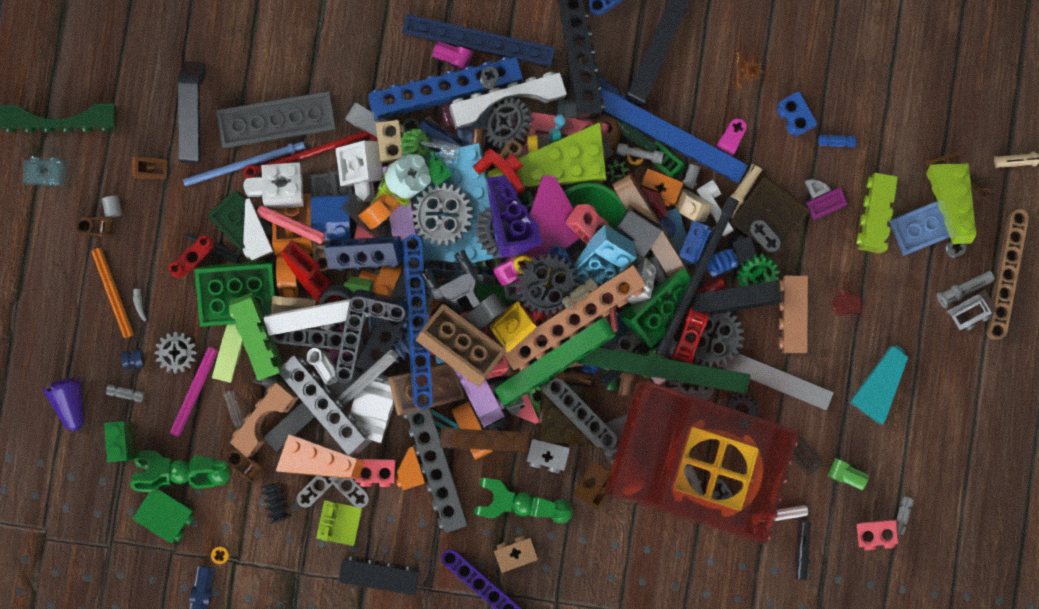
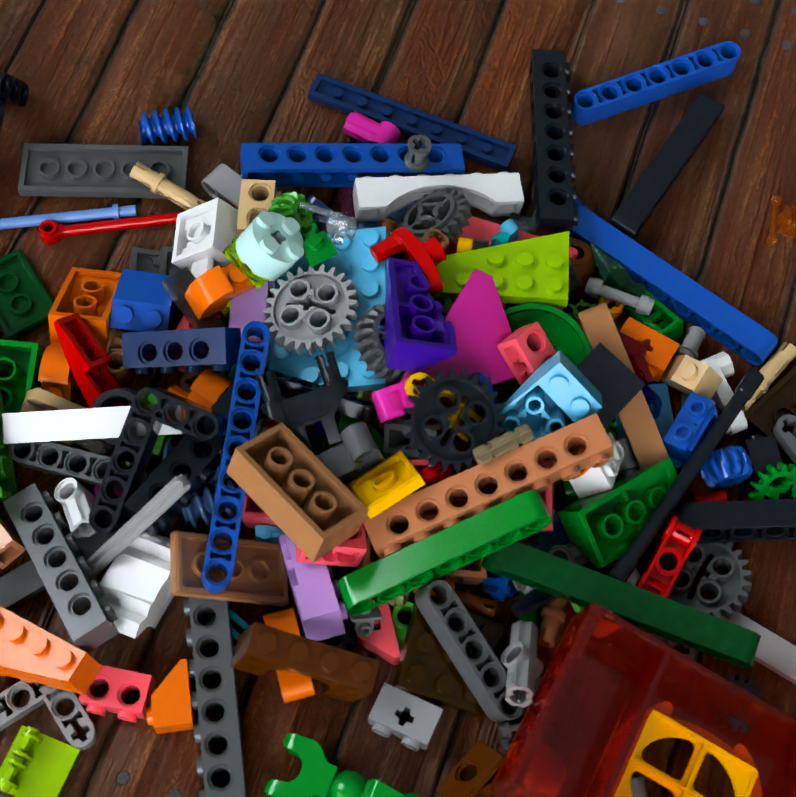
camera: 10 degrees right, 20 degrees down
(255, 238) = (26, 306): white slope -> none
(275, 193) = (81, 248): white brick -> none
(290, 224) = (84, 296): coral axle -> none
(311, 77) = (167, 125): none -> blue piece
(325, 130) = (160, 184): none -> tan pin
(611, 414) = (521, 664): none -> light grey piece
(730, 140) = (757, 301): dark pink piece -> none

